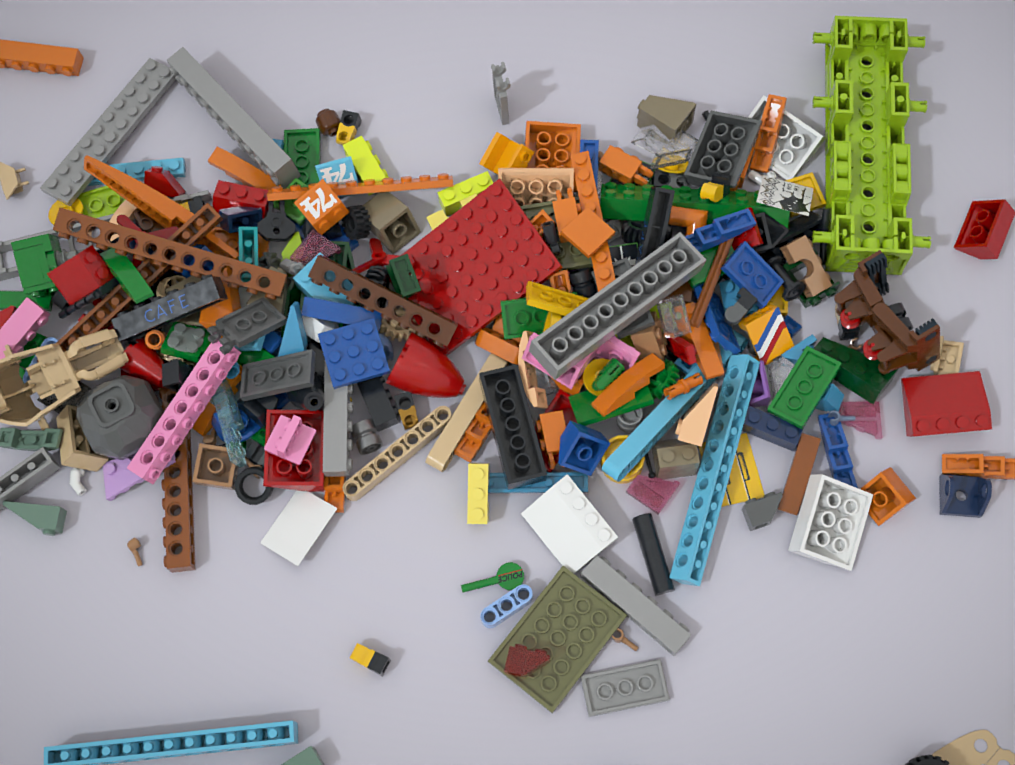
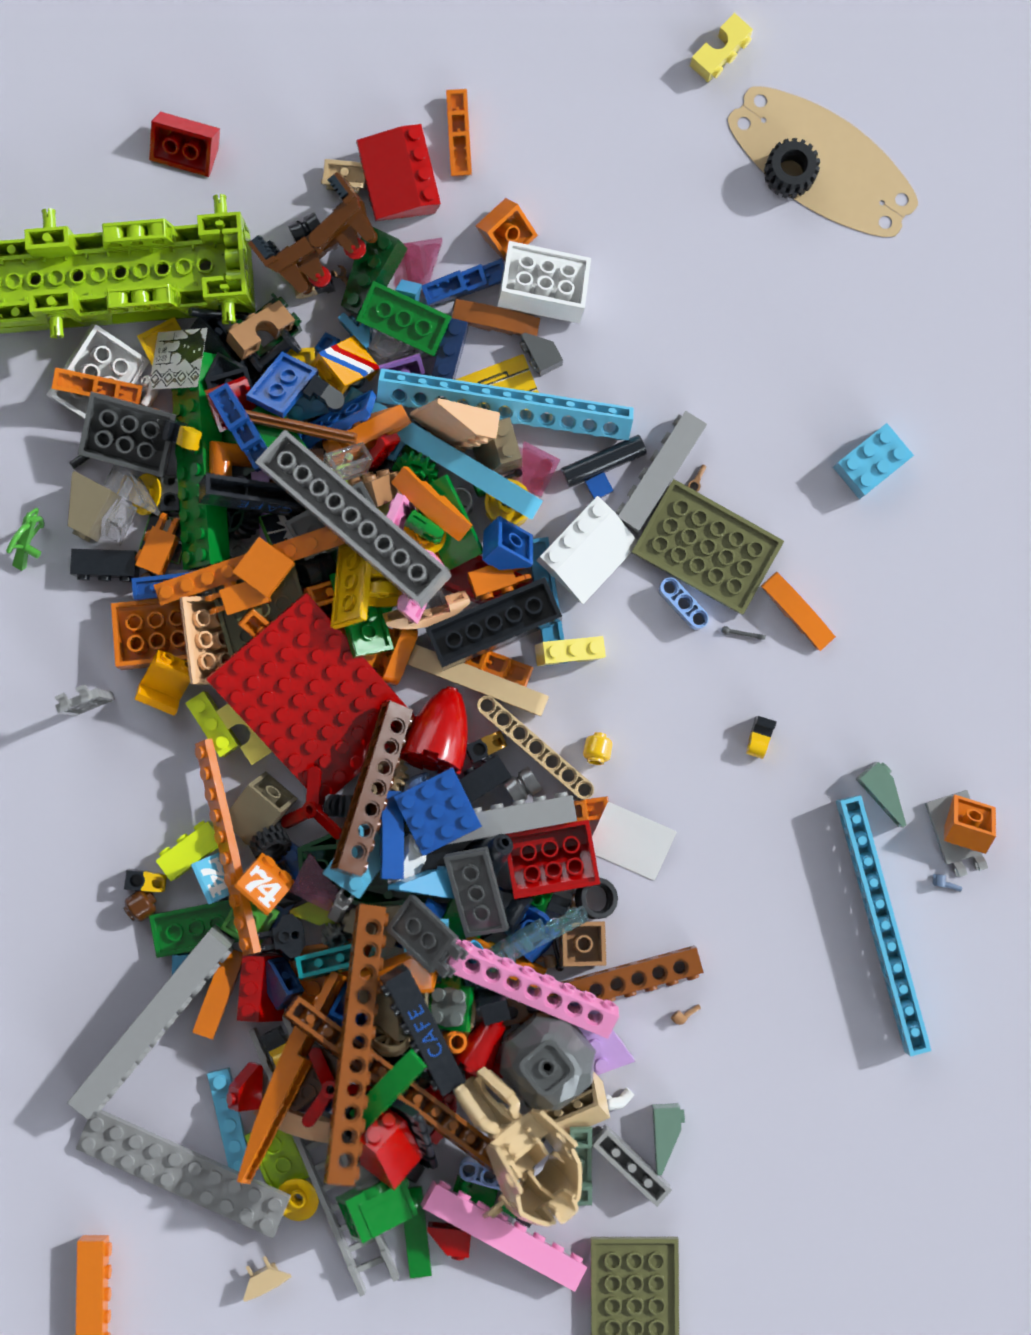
camera: 105 degrees left, 15 degrees up
(290, 439) = (546, 864): bright pink bracket -> none
(386, 507) = (597, 748): none -> yellow head
(399, 271) = (337, 774): dark green panel -> none
(476, 644) = (725, 630): none -> dark grey hinge
(482, 715) = (798, 611): none -> orange slope
(508, 577) = (651, 607): green piece -> none
(525, 662) = (742, 574): clear red slope -> none
(551, 236) = (270, 609): black bar -> none
(616, 125) = (104, 564): none -> black brick
(624, 688) = (745, 472): light grey tile -> none
(629, 546) = (599, 486): none -> blue tile
(651, 66) = (23, 538): none -> bright green piece
(683, 386) = (424, 445): orange pin -> none
(833, 422) = (429, 281): sand blue hand -> none
(974, 489) = (488, 139): dark blue hose -> none

